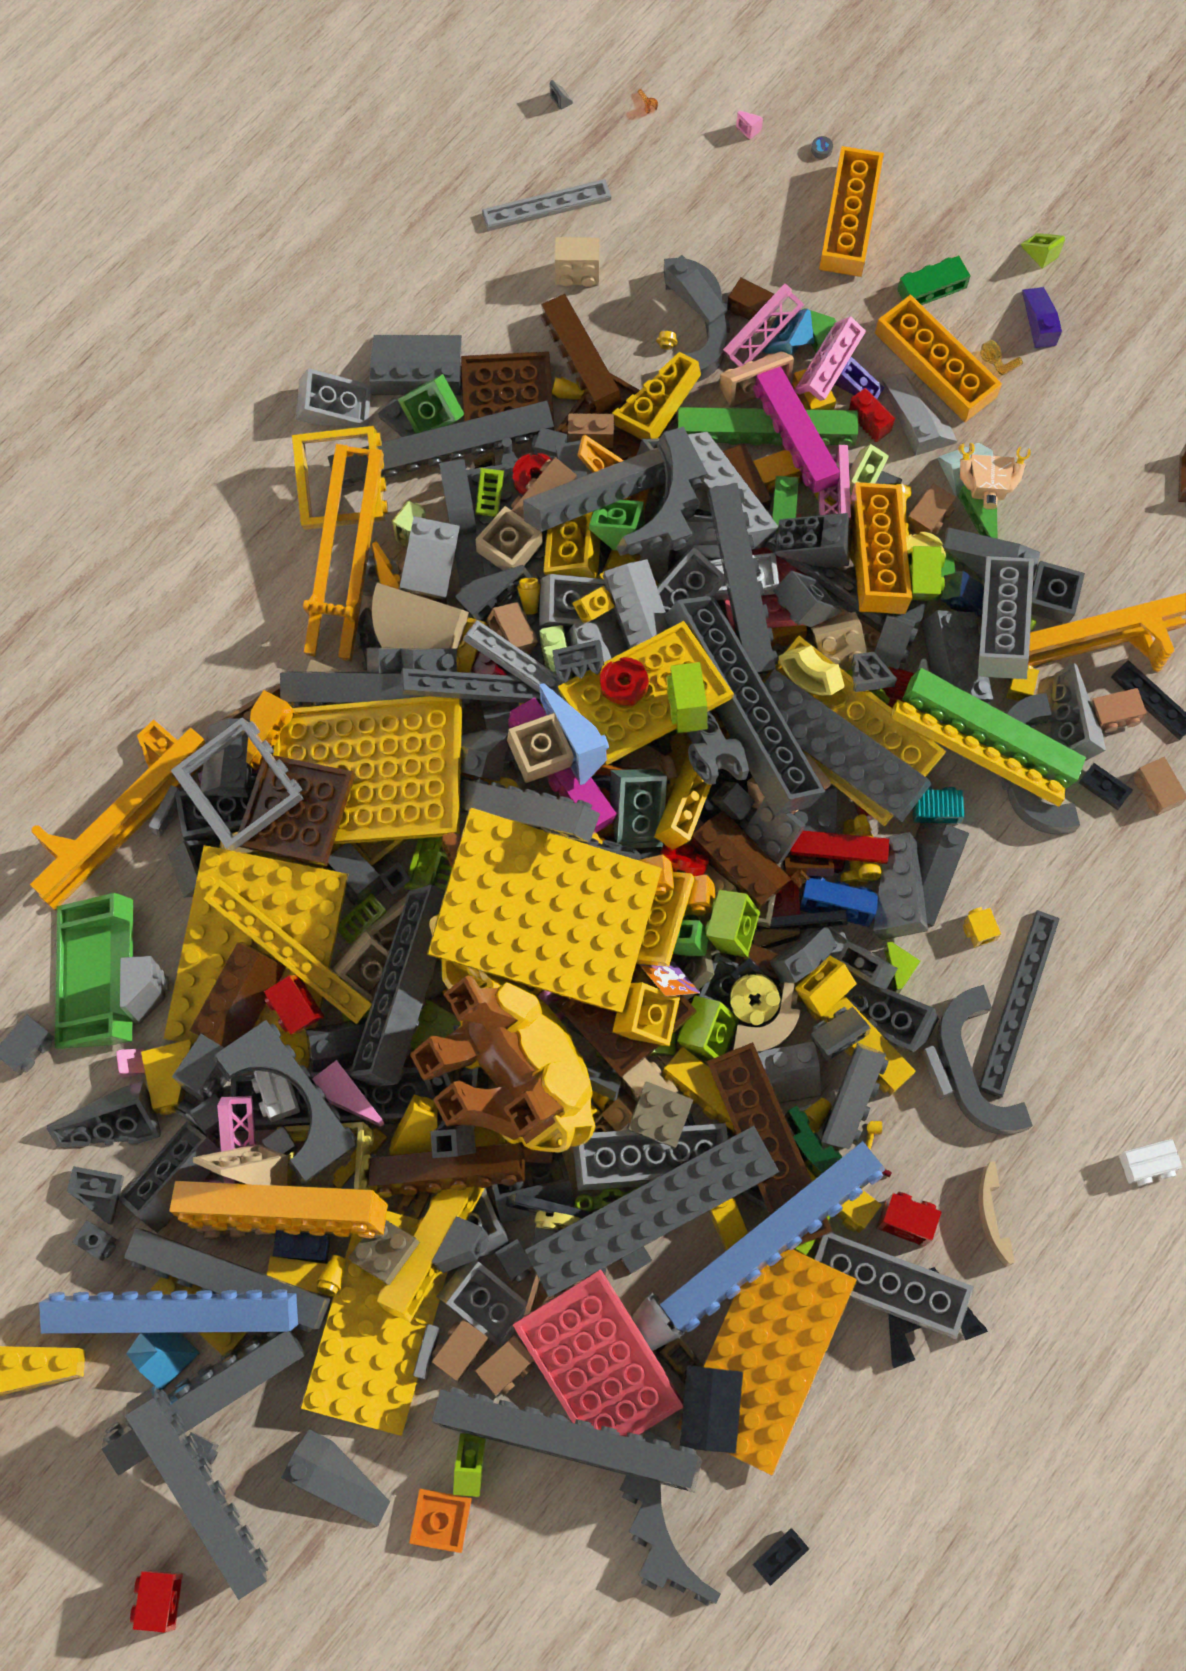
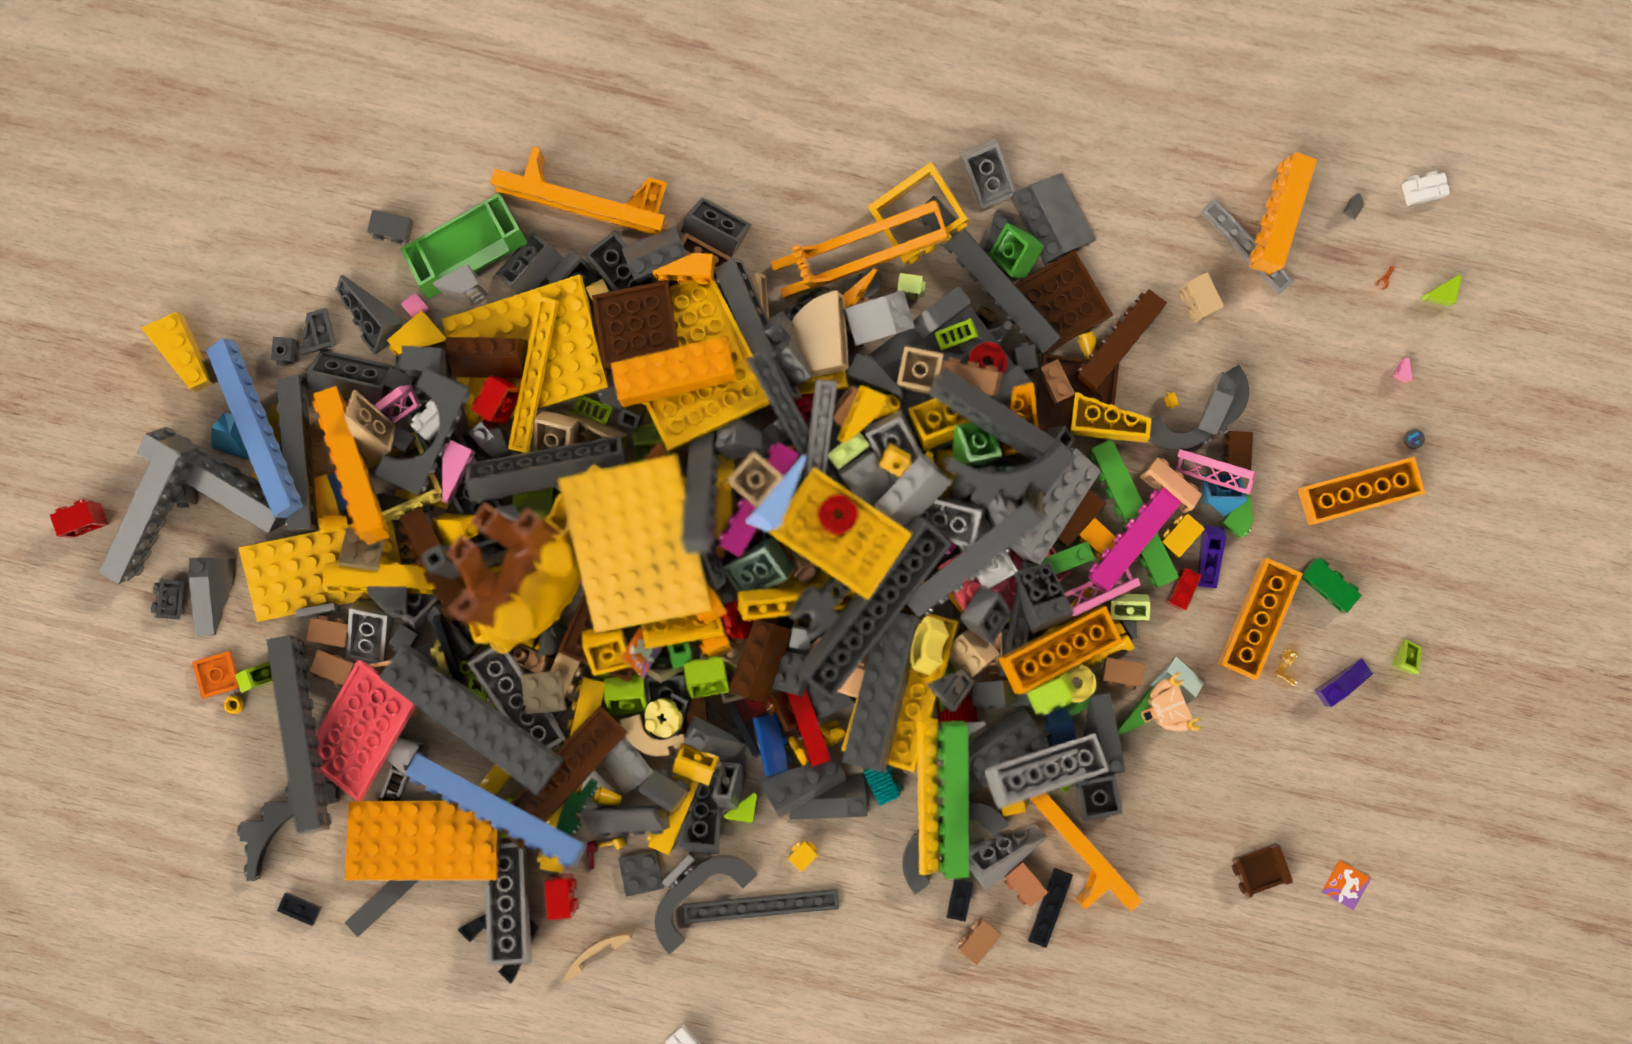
camera: 65 degrees right, 15 degrees up
(158, 909) = (529, 265): none -> dark grey slope
(164, 813) = (602, 229): light grey tile -> none
(183, 770) = (603, 262): light grey window -> none
(232, 690) = (715, 227): none -> dark grey slope
(315, 1537) = (168, 599): none -> dark grey bracket
(372, 785) = (674, 371): none -> light orange brick
(488, 1527) = (228, 704): none -> yellow plate
(522, 610) = (862, 411): none -> yellow slope
(533, 152) = (1282, 213): none -> light orange brick
(578, 27) = (1426, 188): none -> white brick
(578, 659) = (841, 471): dark grey plate -> none
(687, 697) = (840, 569): lime brick -> none
(691, 55) = (1446, 293): none -> lime slope
(711, 1409) = (365, 820): black slope -> none
(819, 1452) = (378, 905): none -> dark grey tile
(831, 358) = (1229, 538): bright pink fence -> none
(919, 418) = (1202, 628): light grey wedge -> none
(921, 1119) = (641, 873): none -> dark grey plate

